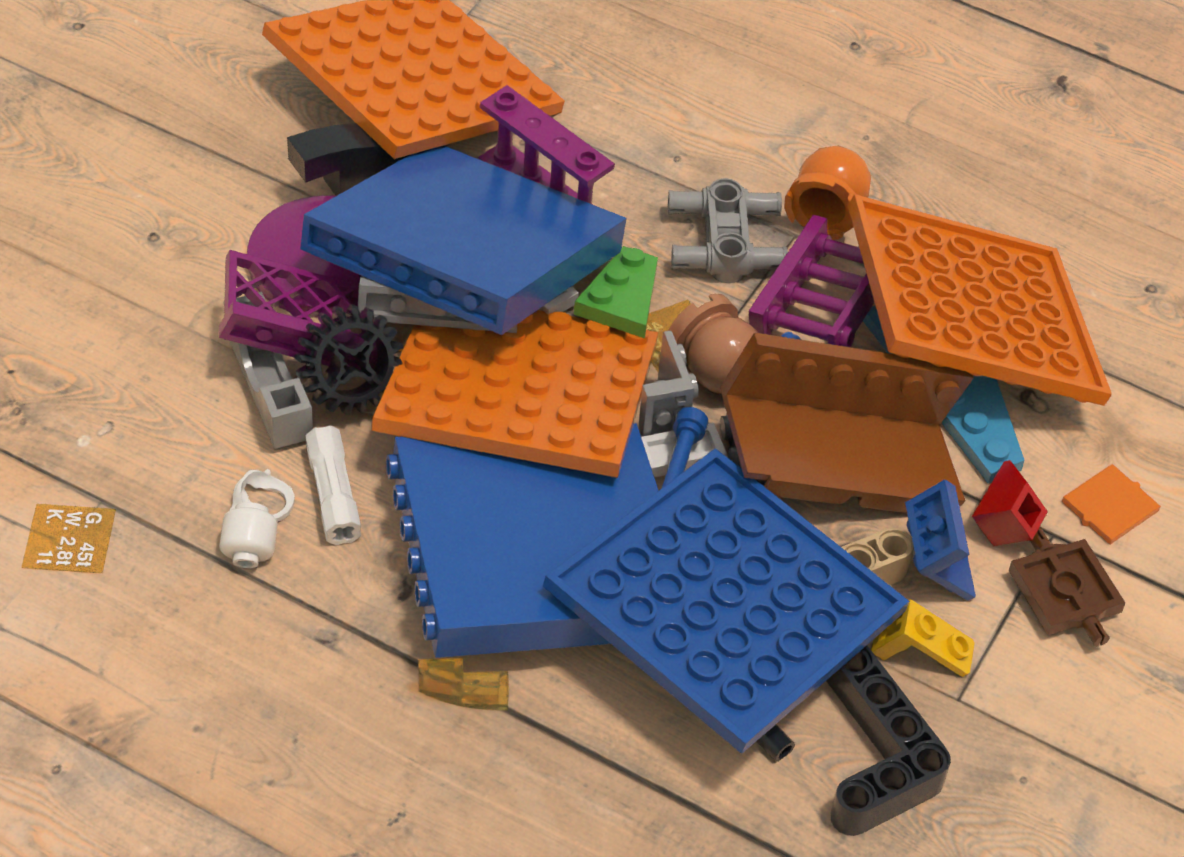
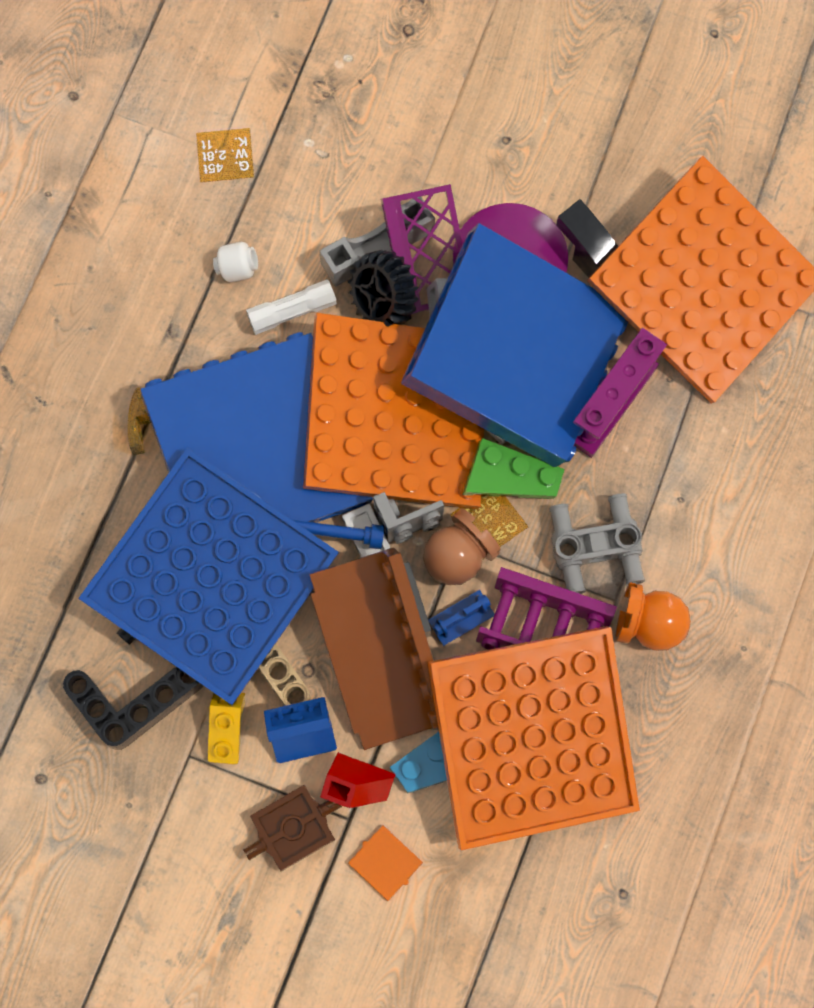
camera: 85 degrees right, 25 degrees up
(266, 482) = (269, 255): white piece -> none

